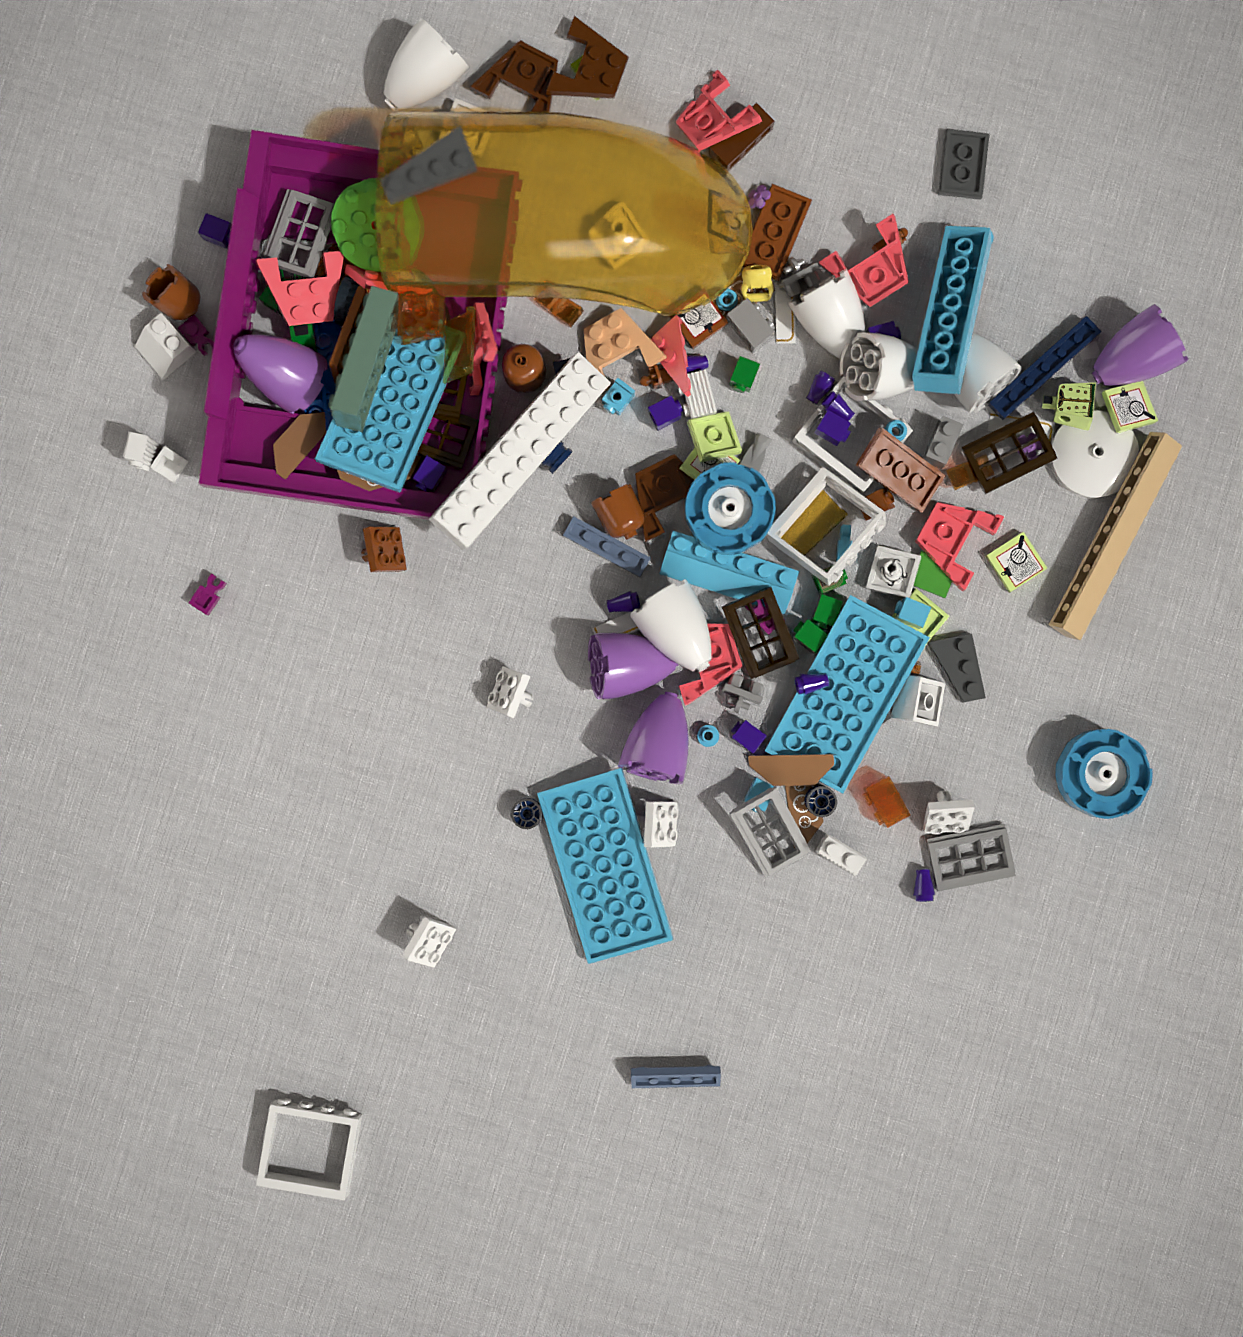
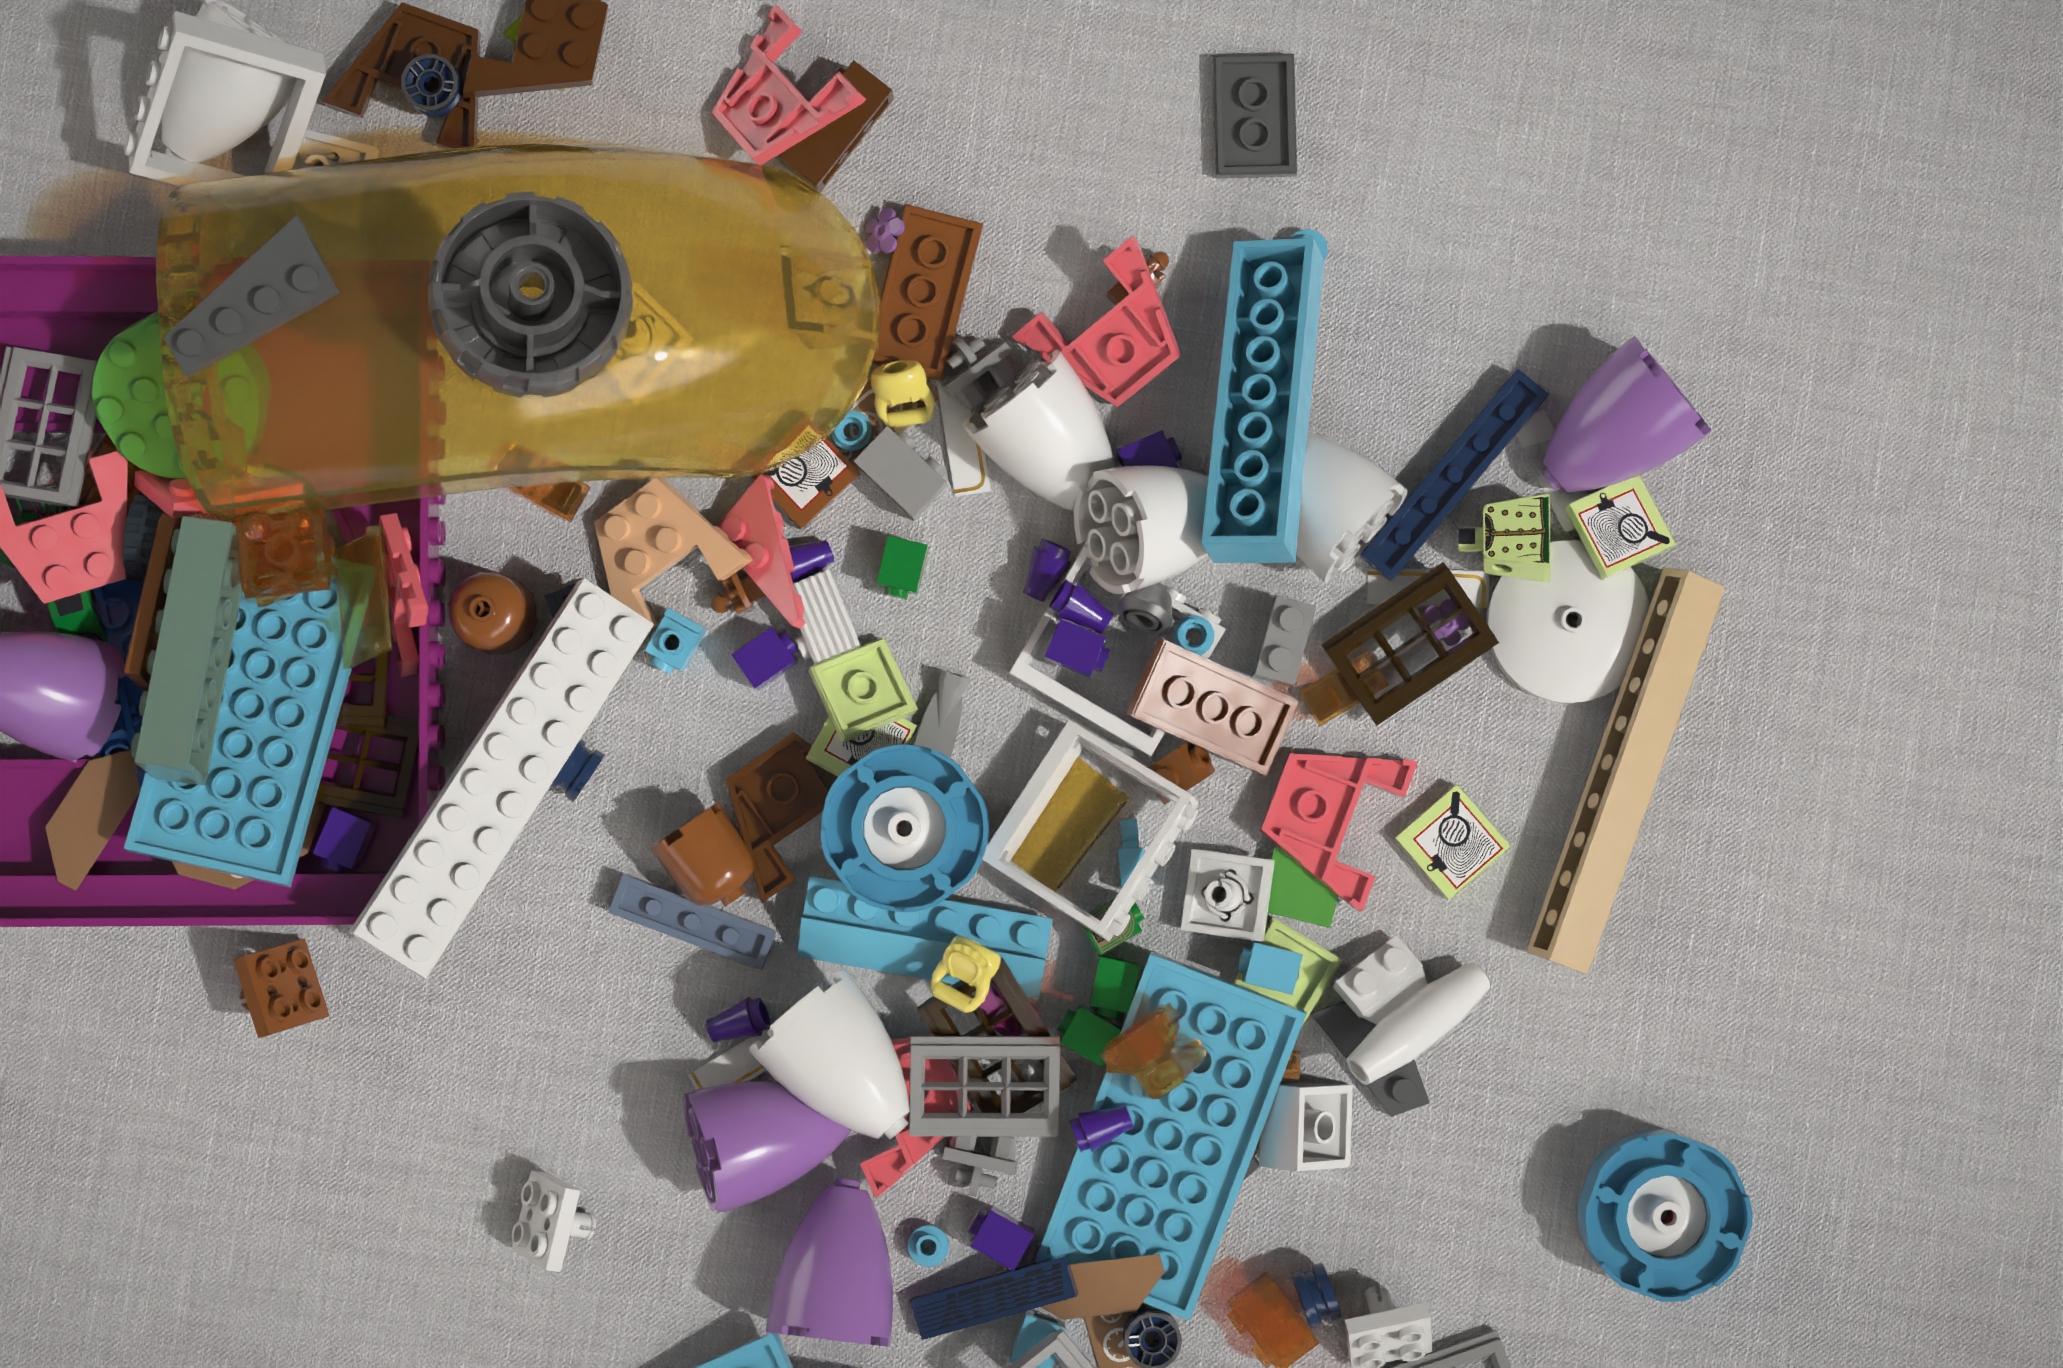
camera: 10 degrees left, 0 degrees up
(392, 51) = (233, 44): none -> white window
(525, 78) = (422, 72): none -> dark blue wheel
(580, 182) = (522, 341): none -> flat silver wheel
(740, 767) = (994, 1297): none -> dark blue tile
(753, 585) = (969, 963): none -> light yellow piece
(756, 633) = (984, 1124): none -> light grey piece
(846, 646) = (1154, 1054): none -> clear orange piece
(873, 412) = (1147, 608): none -> flat silver cone
(912, 790) = (1316, 1295): none -> dark blue wheel
(980, 644) = (1408, 1012): none -> white plate

